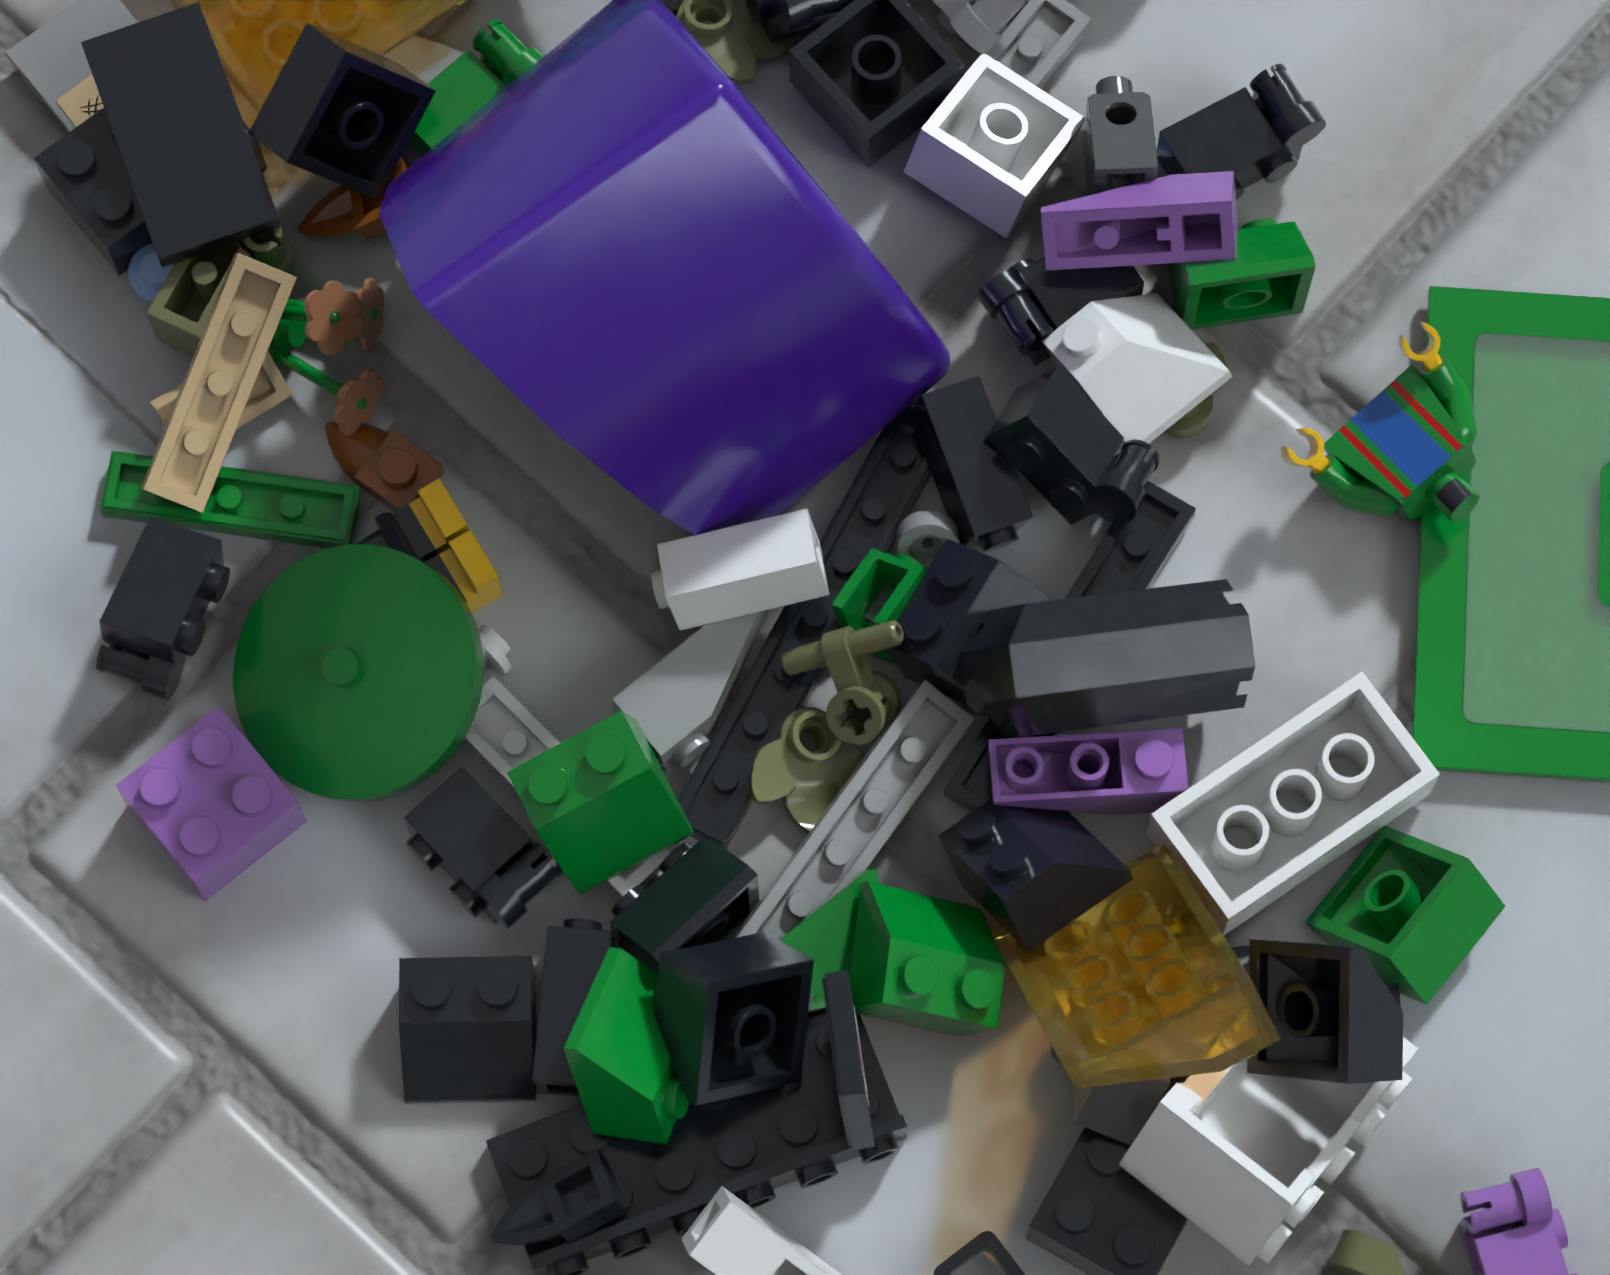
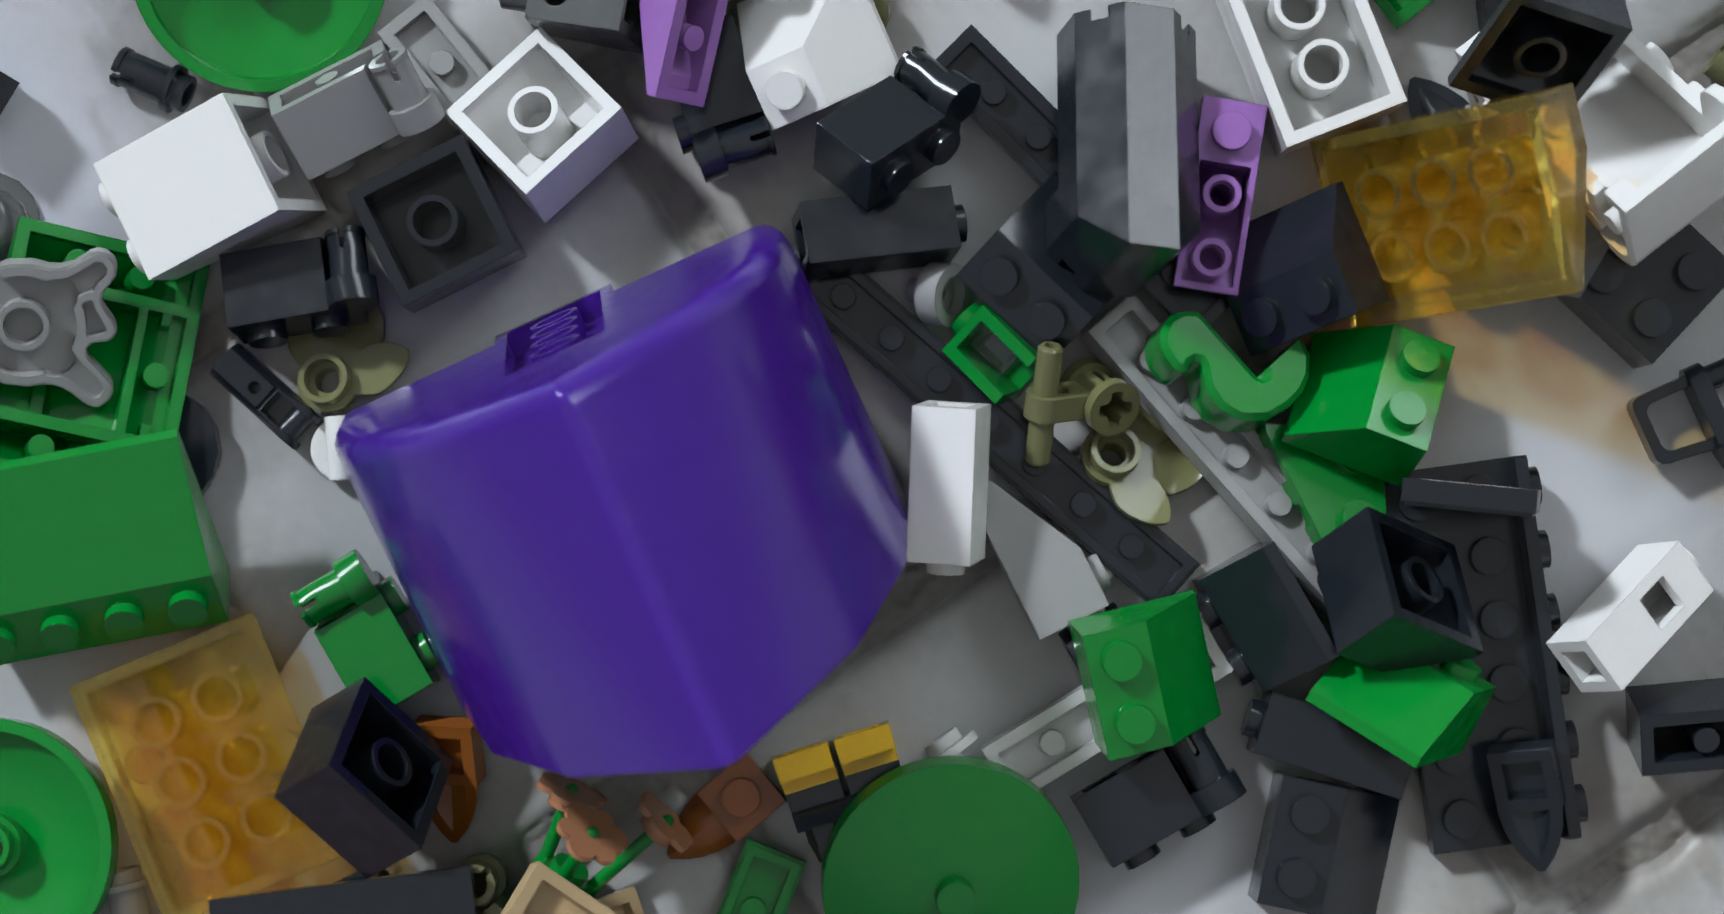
camera: 80 degrees left, 15 degrees up
(900, 814) = (1218, 380): none -> green animal

